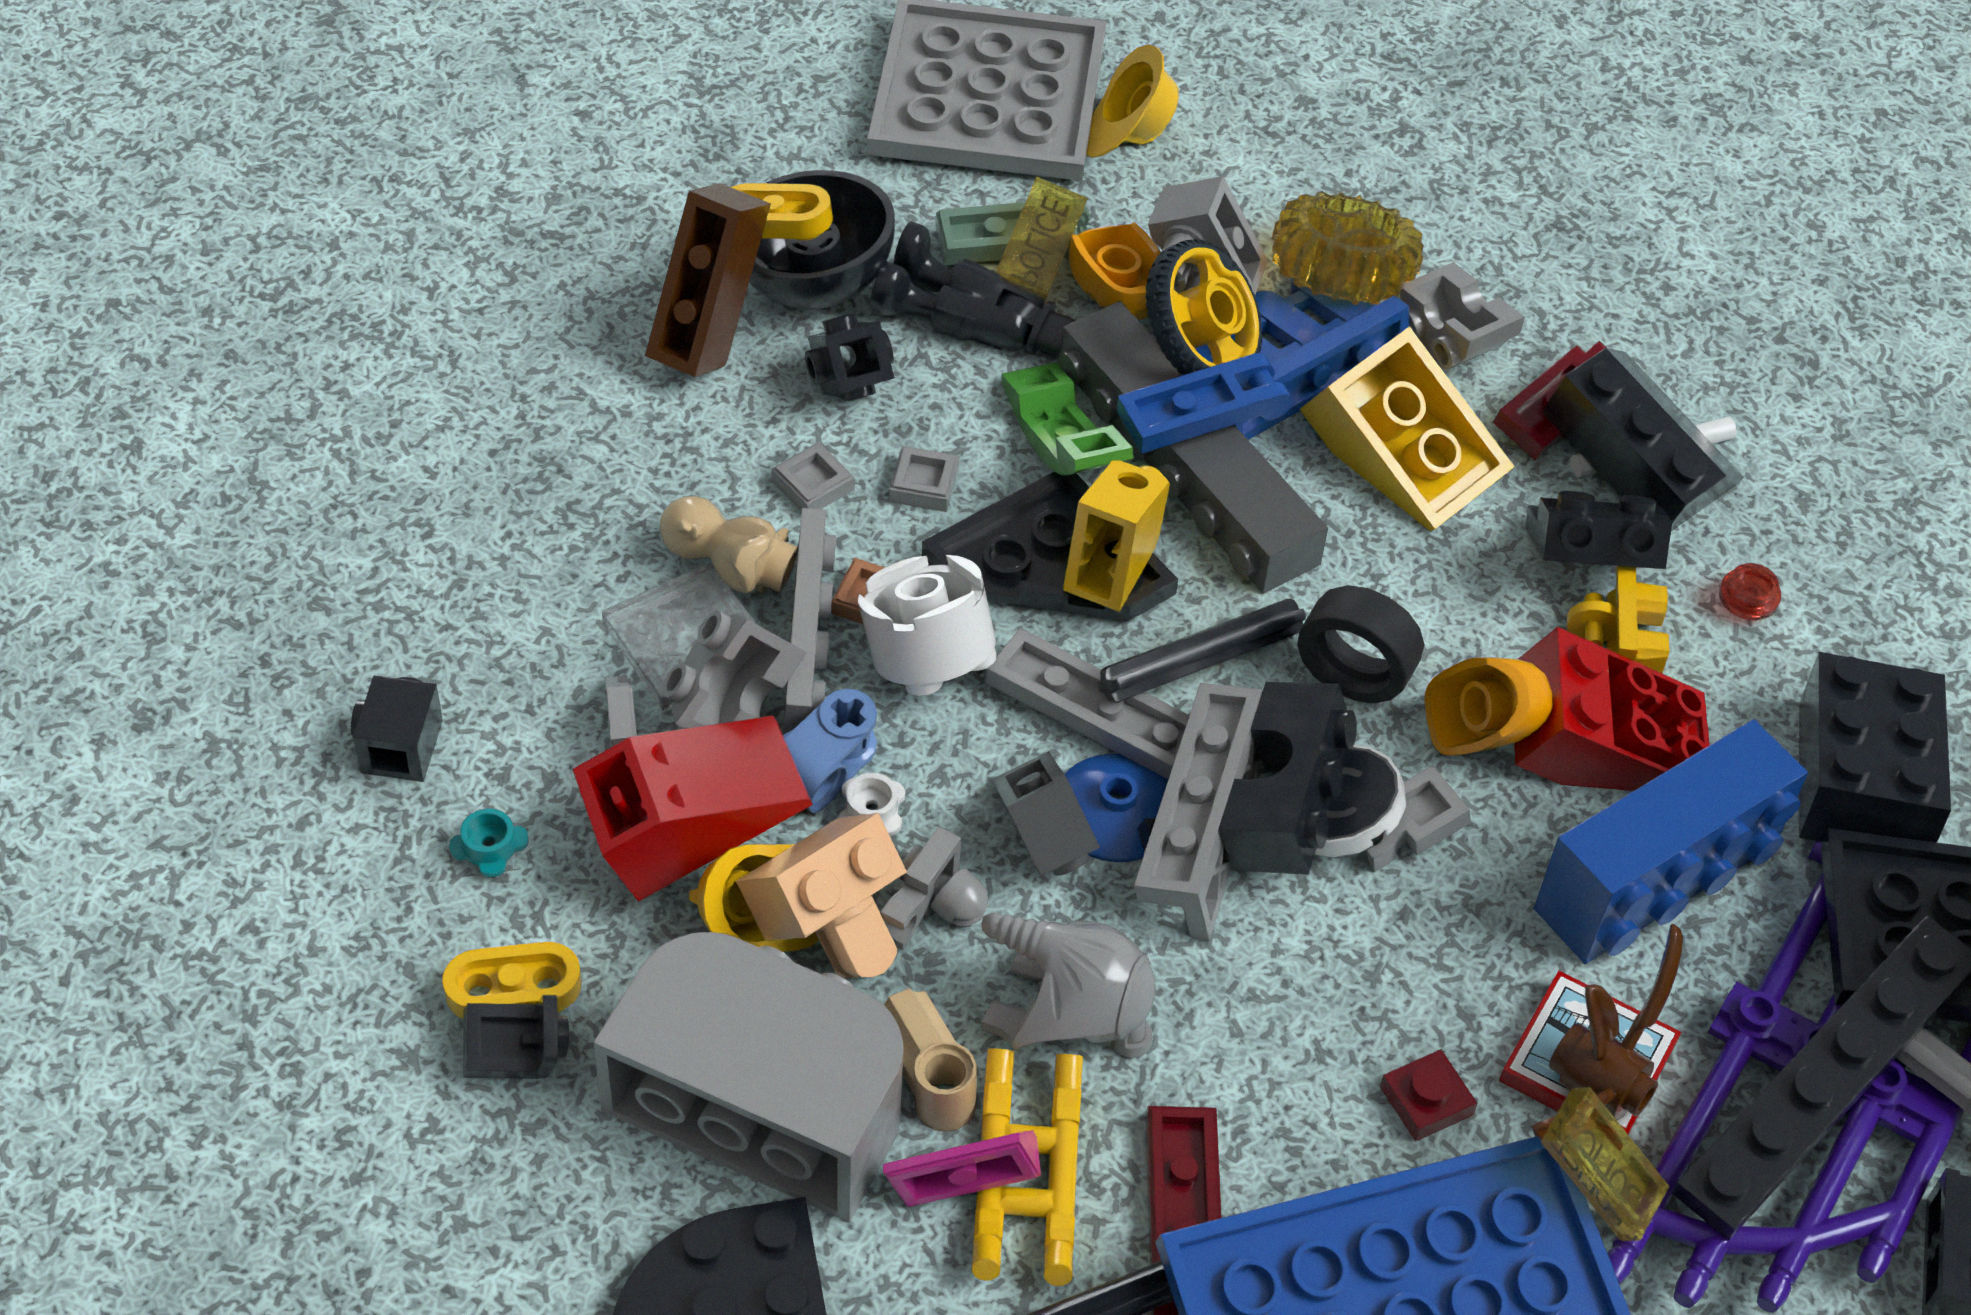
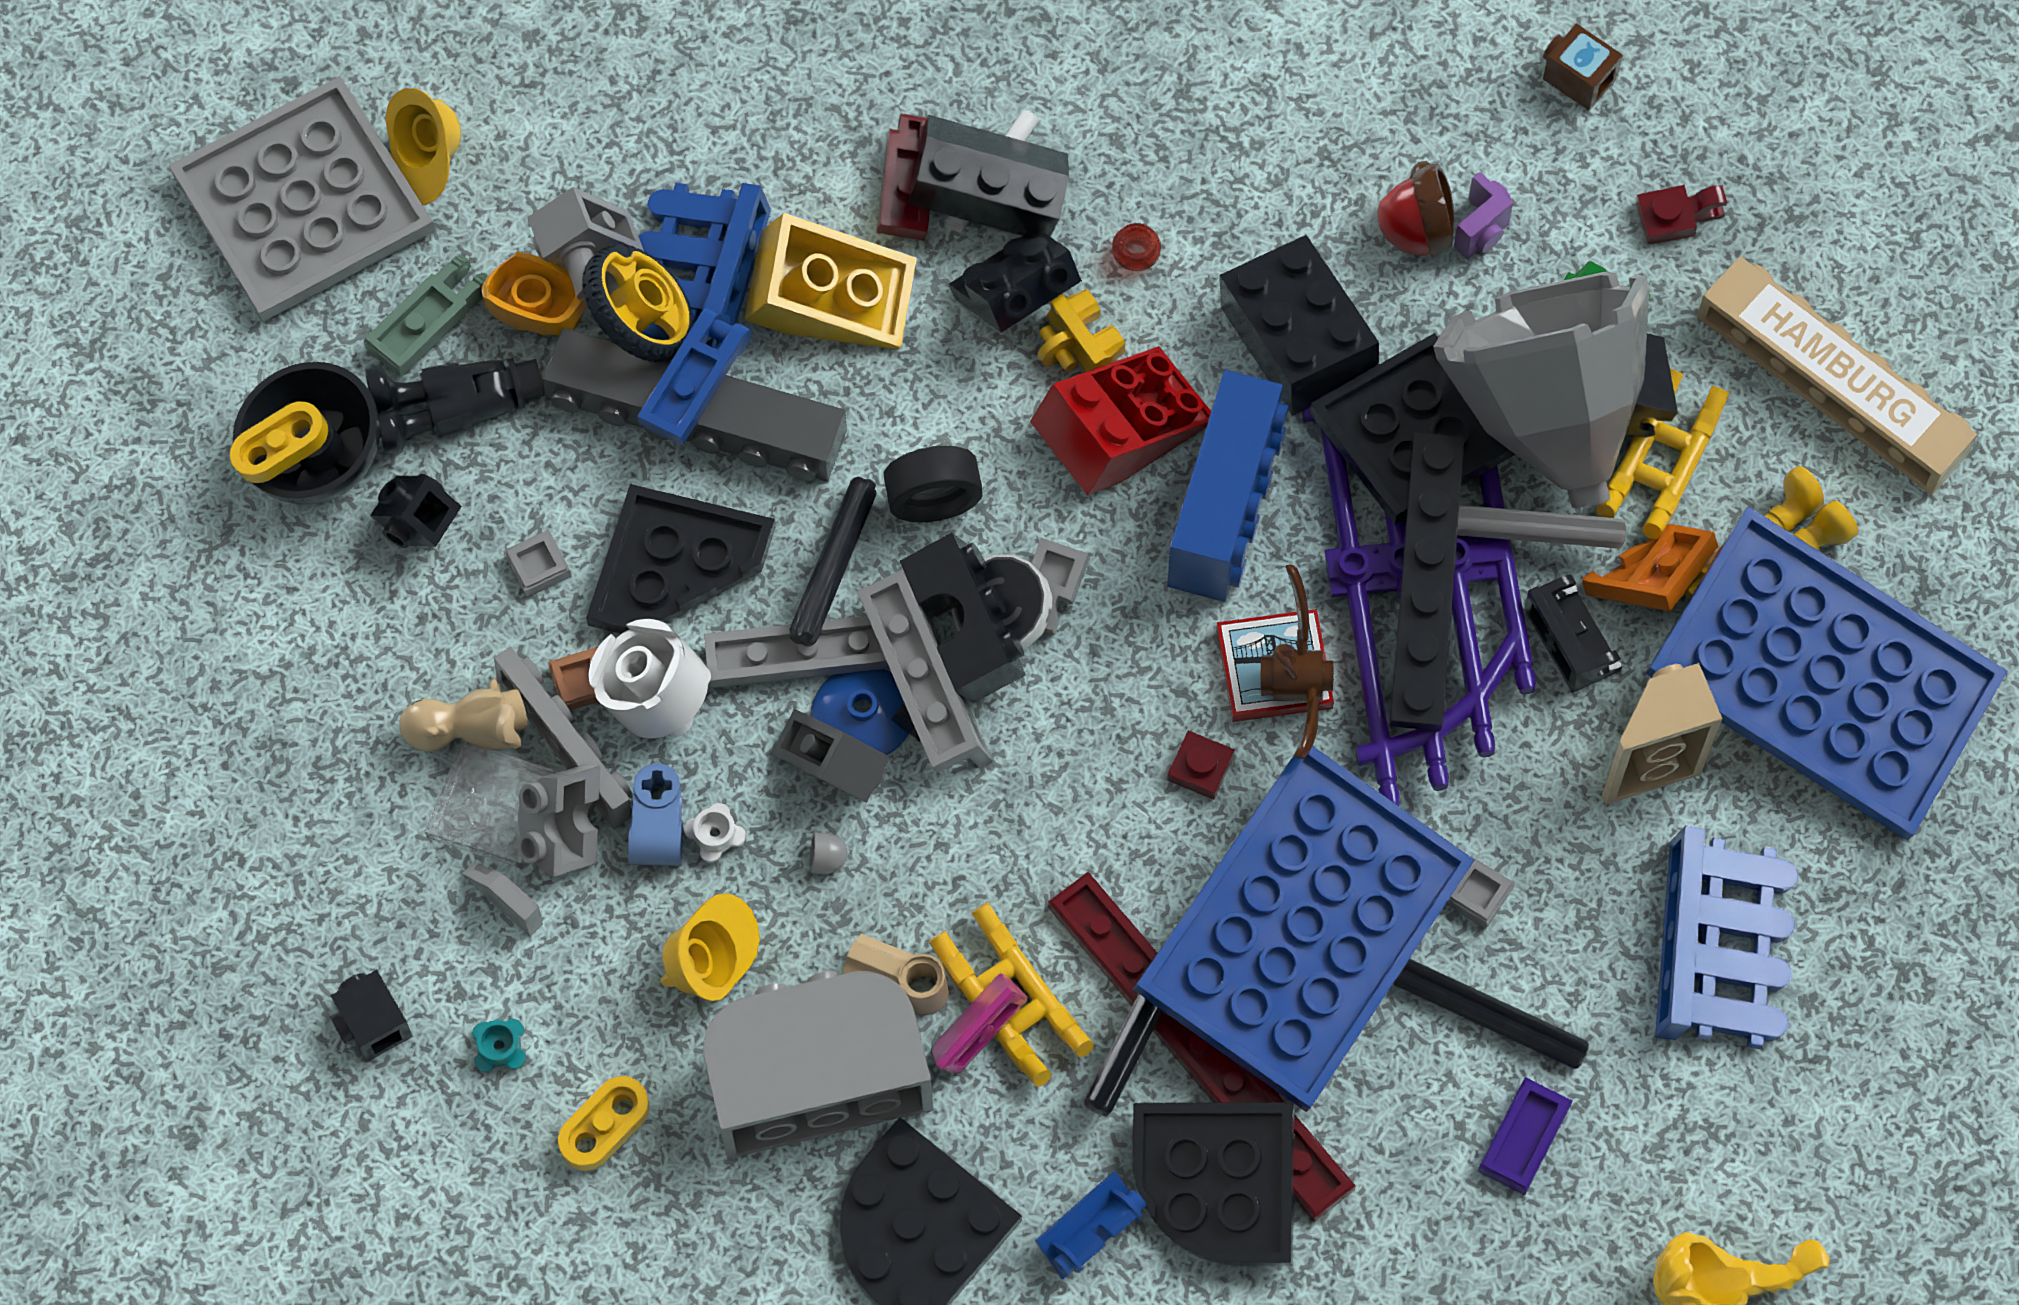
camera: 35 degrees left, 15 degrees up
(513, 1039) = (643, 1158): black bracket -> none
(687, 797) = (613, 920): red slope -> none
(707, 279) = (279, 531): reddish brown brick -> none
(813, 478) = (463, 621): light grey tile -> none
(828, 890) = (750, 917): light nougat brick -> none
(926, 874) = (792, 854): light grey plate -> none
(1041, 237) = (460, 311): clear yellow tile -> none
(1056, 426) = (601, 458): bright green slope -> none
(1090, 988) = (963, 851): light grey piece -> none
(1121, 506) = (716, 507): yellow torso -> none
(1346, 247) = (704, 168): clear yellow gear -> none
(1455, 318) = (791, 165): light grey cylinder -> none
(1486, 704) = (1045, 471): light orange piece -> none
(1605, 1164) = (1347, 744): clear yellow tile -> none

